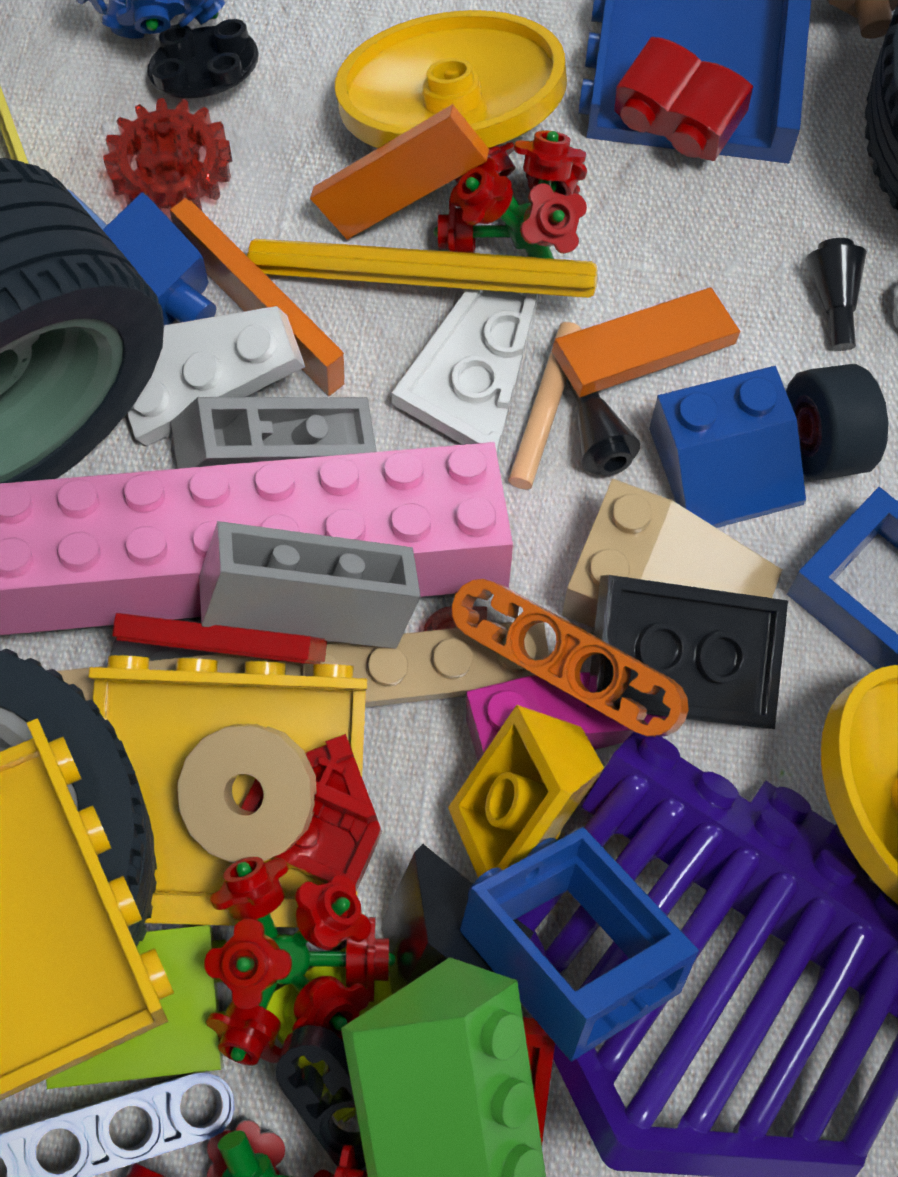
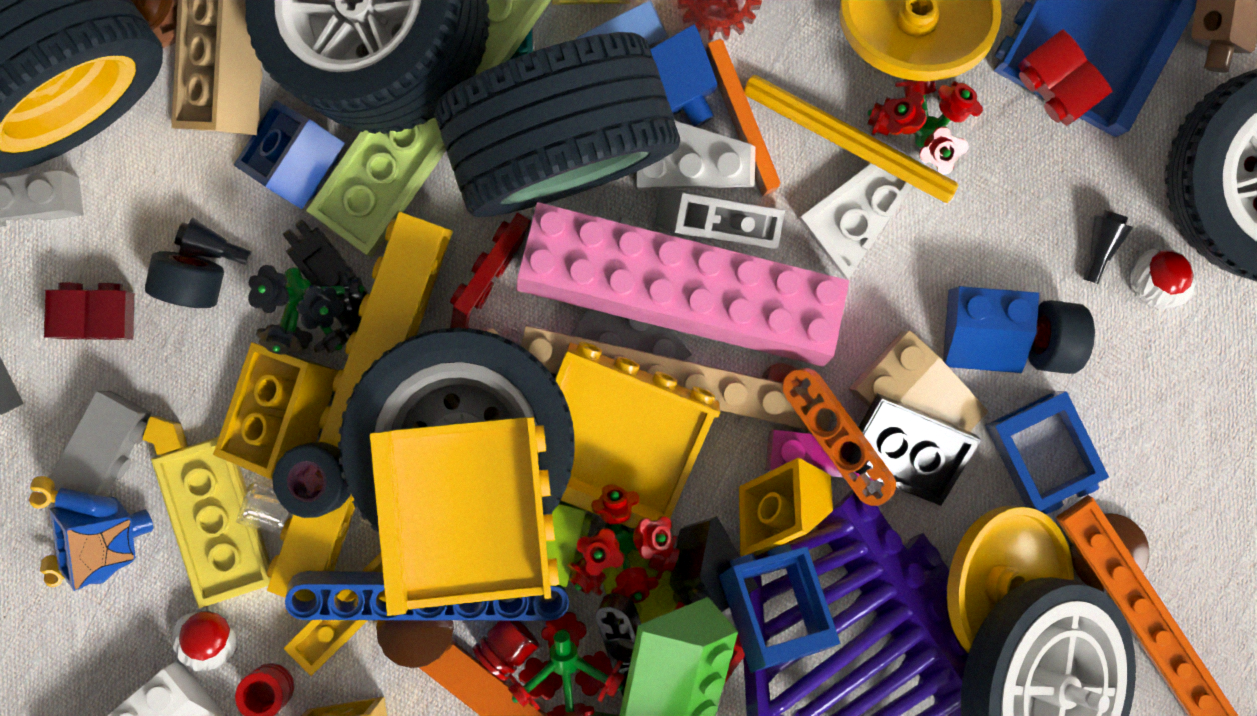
camera: 20 degrees right, 20 degrees up
(208, 800) = (616, 465): tan tile -> none
(220, 639) = (645, 351): red tile -> none
(308, 585) = (706, 342): light grey brick -> none
(343, 821) = (662, 469): red slope -> none
(400, 172) = (861, 74): orange tile -> none
(540, 418) = (892, 253): light nougat bar -> none
(604, 438) = (917, 290): black cone -> none
(645, 341) = (969, 236): orange tile -> none

